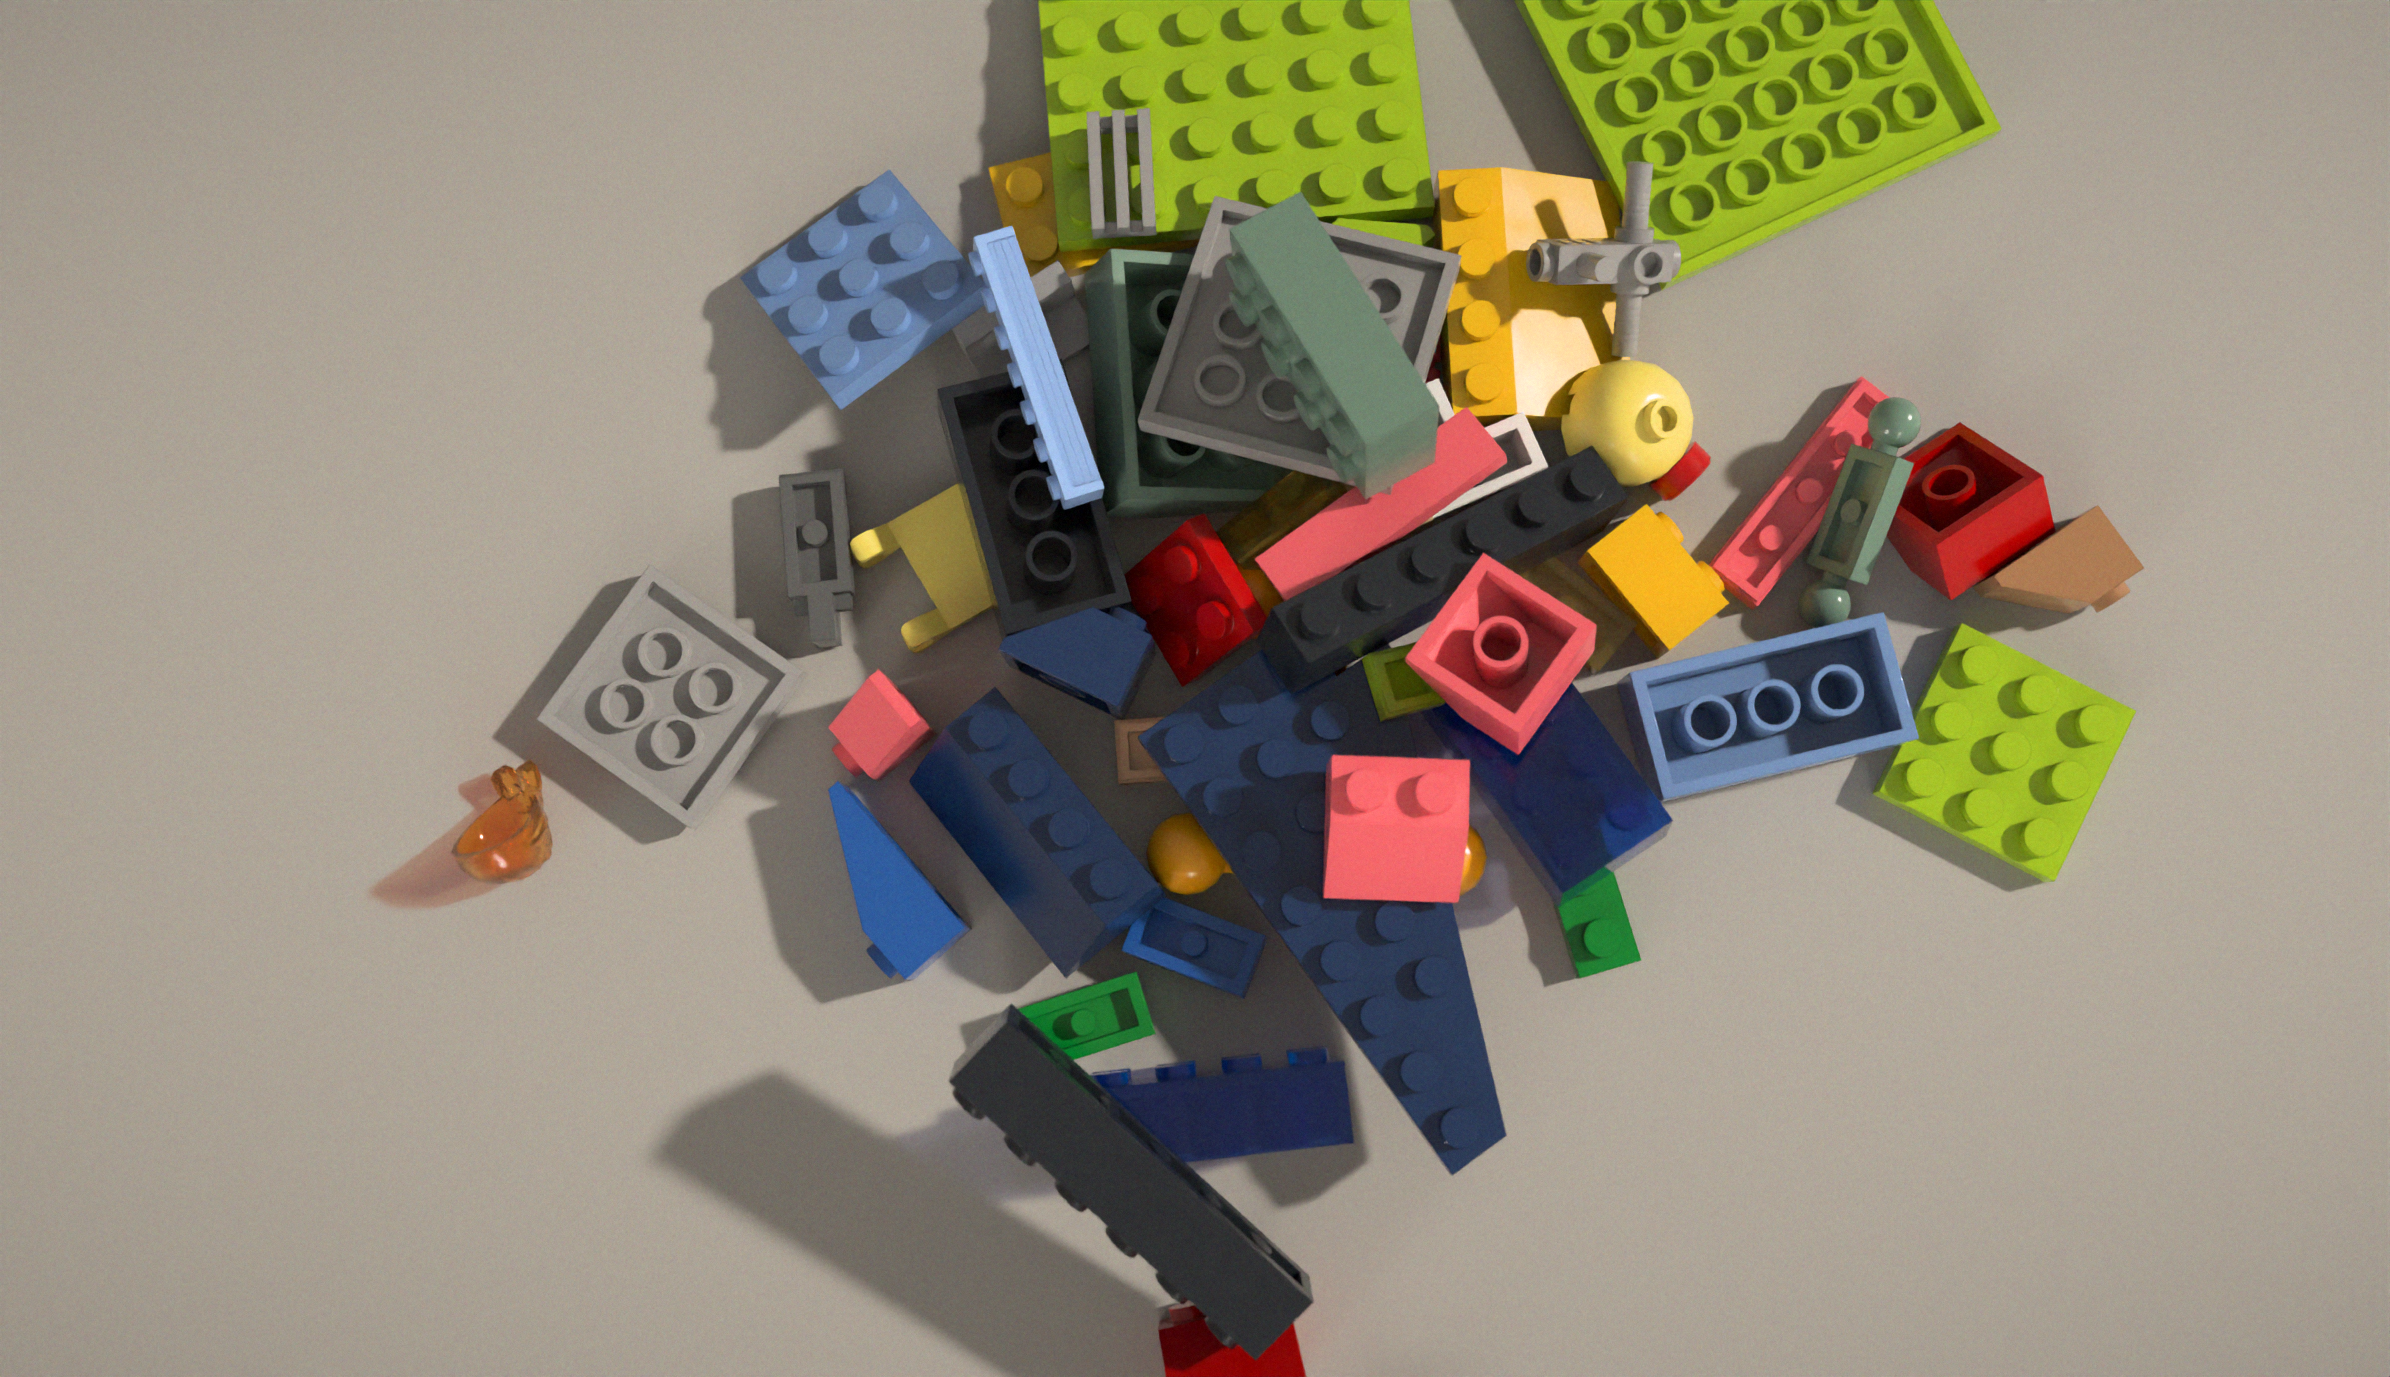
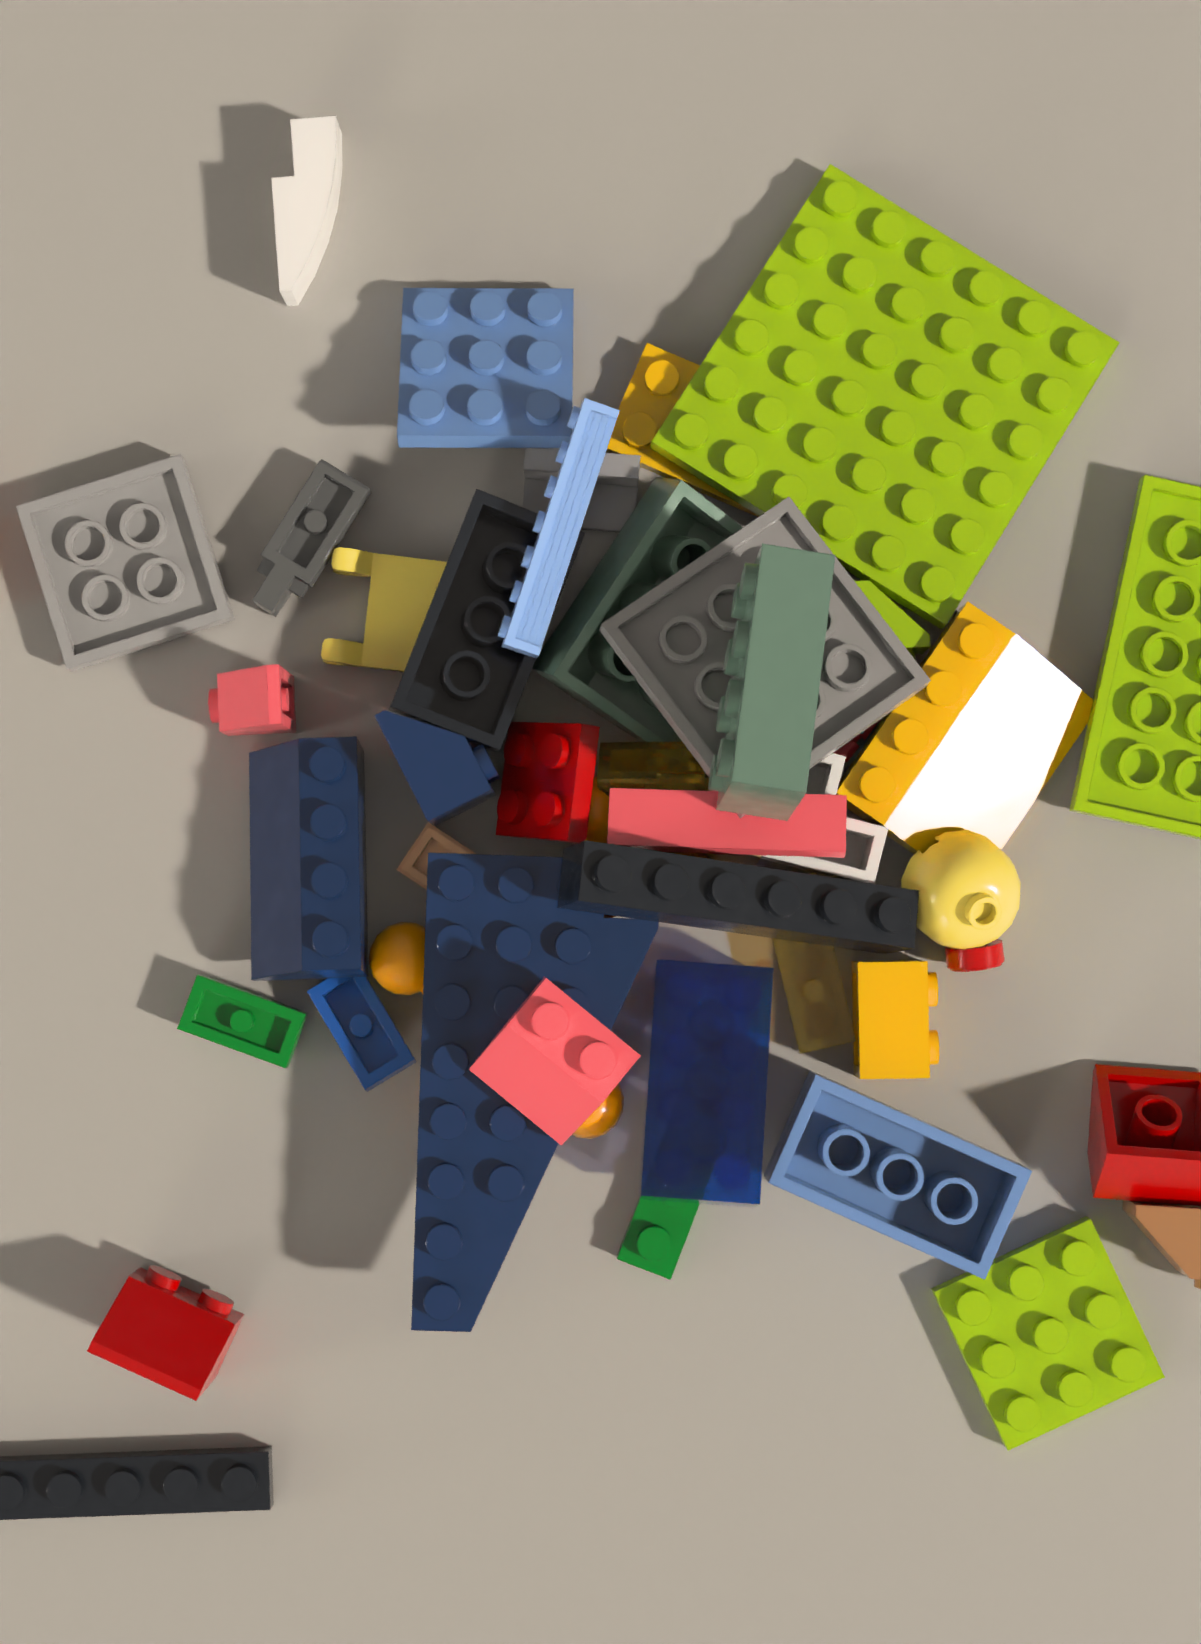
camera: 30 degrees right, 5 degrees up
(599, 266) = (306, 203): none -> white slope
(893, 897) = (175, 831): blue slope -> none
(1119, 125) = (760, 388): light grey tile -> none
(1131, 1183) = (179, 1164): black brick -> none
(1241, 1106) = (280, 1154): clear blue brick -> none
(1396, 685) = (648, 957): lime tile -> none
(1502, 652) = (728, 994): coral slope -> none
(1626, 262) = (1049, 773): light grey piece -> none
(1795, 502) = (1056, 1038): coral tile -> none
(1860, 512) = (1077, 1085): sand green plate -> none

